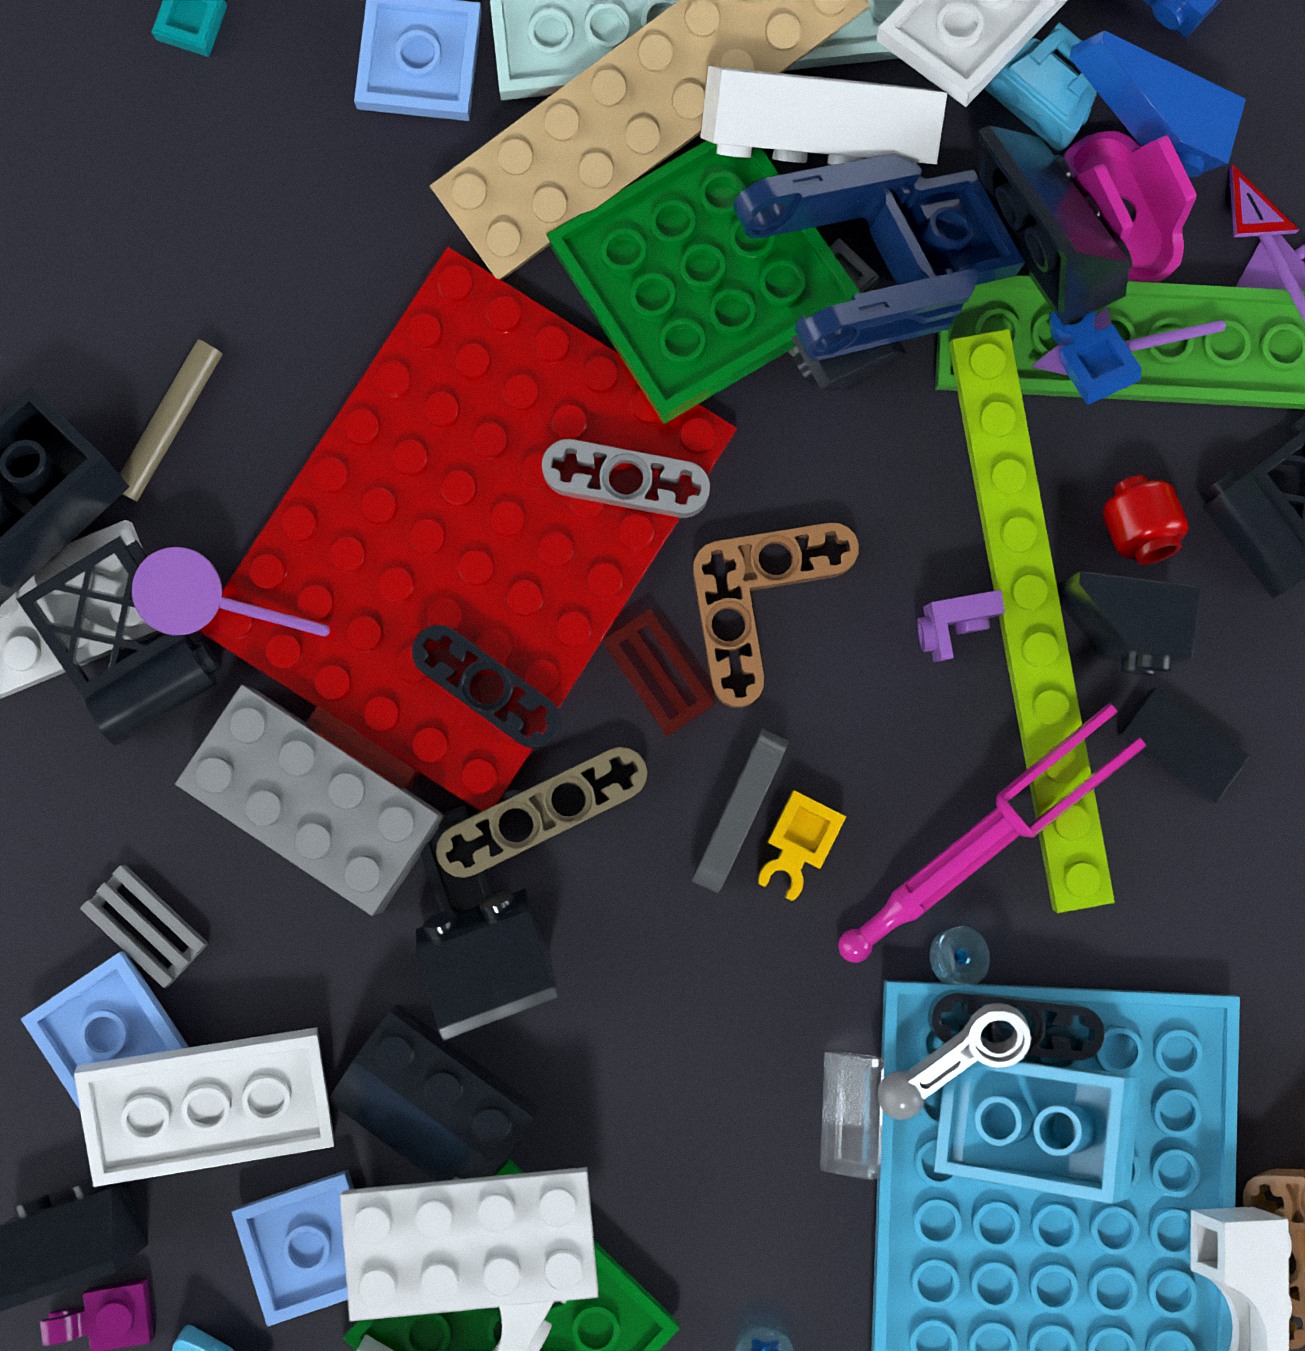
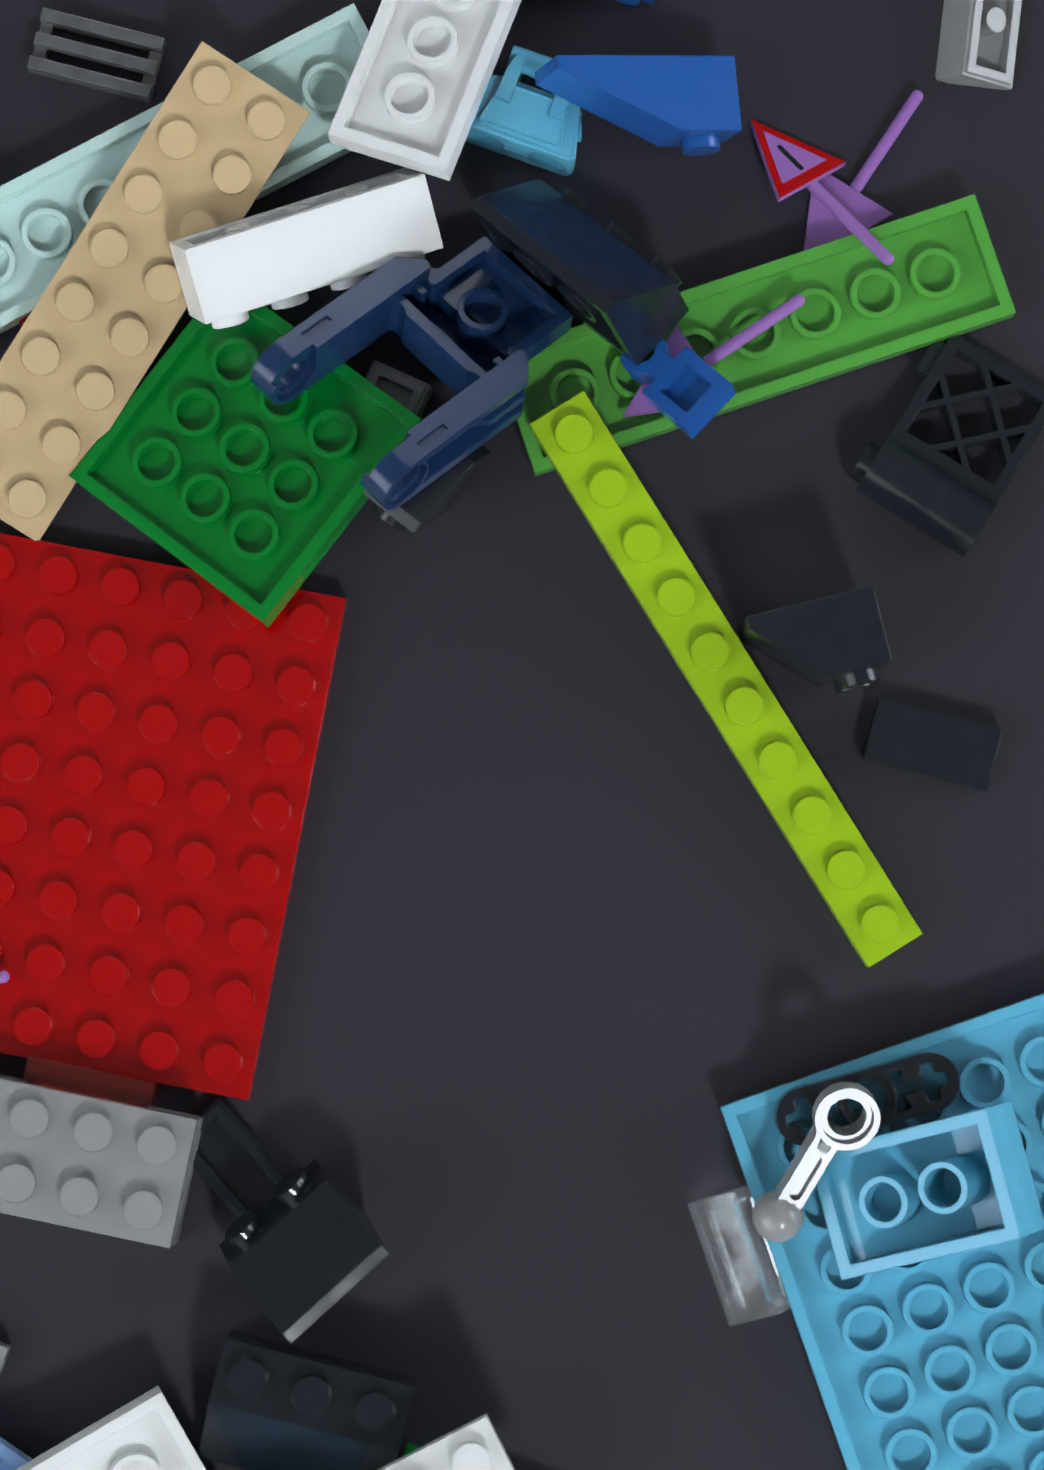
camera: 20 degrees left, 0 degrees up
(443, 673) = (152, 939): black beam -> none
(538, 805) = (295, 1069): dark tan beam -> none
(614, 456) = (207, 722): light grey beam -> none
(685, 713) = (409, 913): clear red tile -> none
(740, 811) = (503, 992): dark grey beam -> none
(750, 577) = (420, 746): medium nougat beam -> none
(804, 835) = (578, 991): yellow plate -> none
(959, 956) = (786, 1051): clear light blue tile -> none
(965, 613) = (657, 698): medium lavender bracket -> none
(980, 843) = (759, 931): dark pink piece -> none
(1145, 520) = (801, 529): red head -> none
(1155, 184) = (627, 172): dark pink piece -> none

